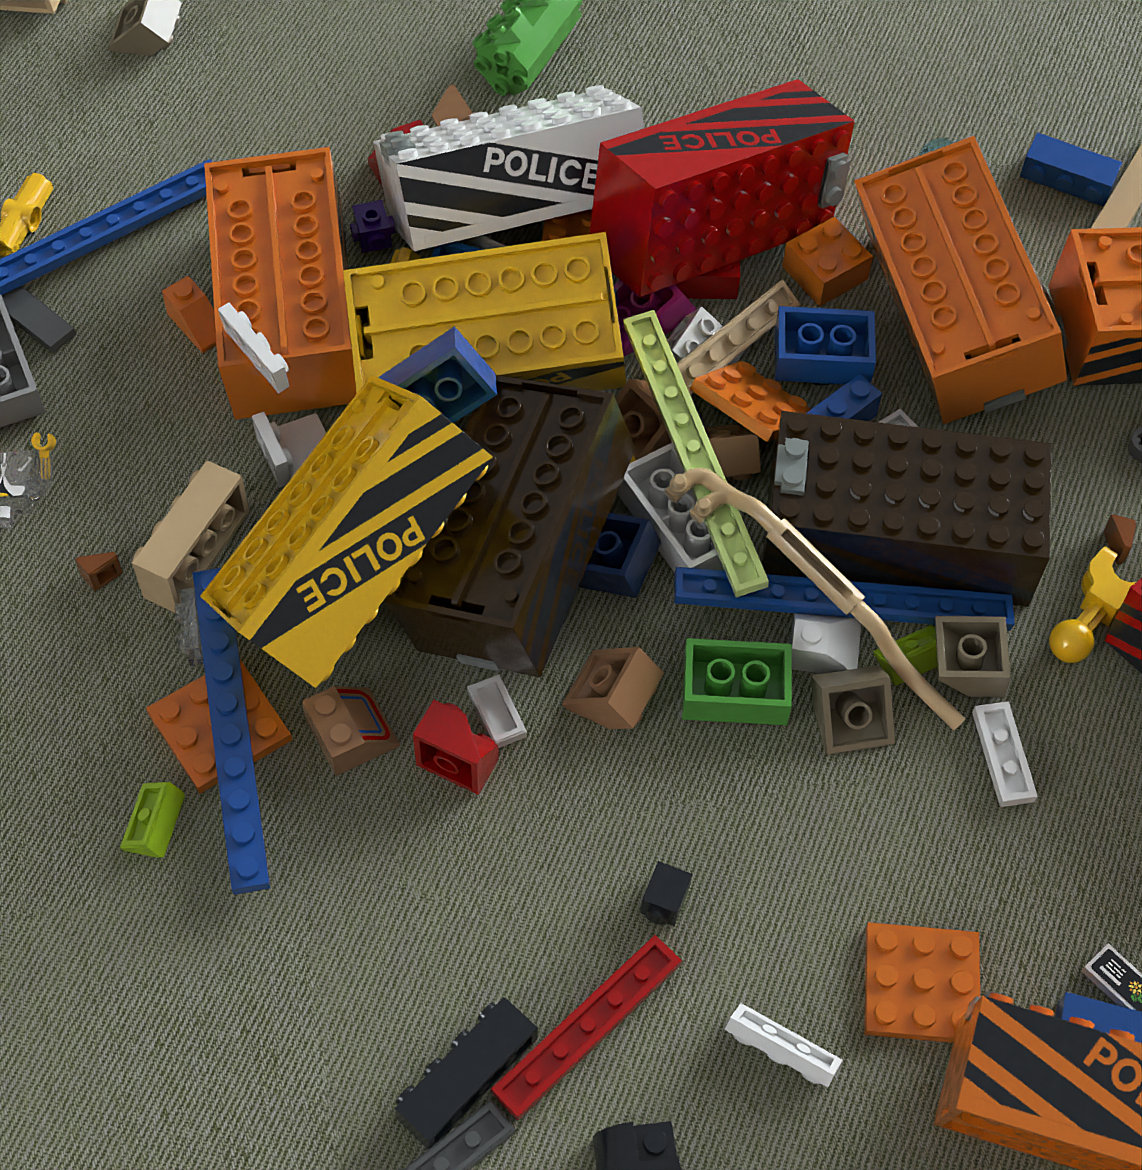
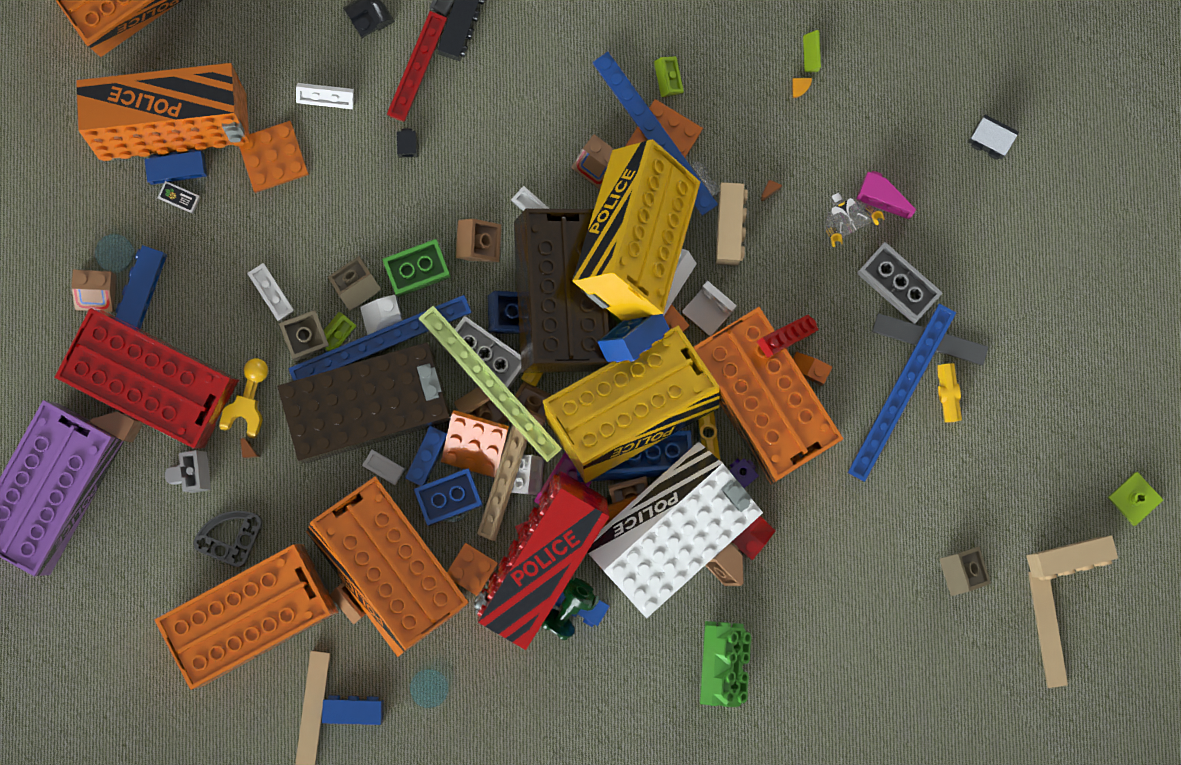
camera: 165 degrees right, 25 degrees up
(200, 320) = (787, 335): none -> red plate
(255, 347) = (741, 319): white plate -> none
(451, 750) = (538, 168): red slope -> none
(818, 570) = (406, 331): tan piece -> none

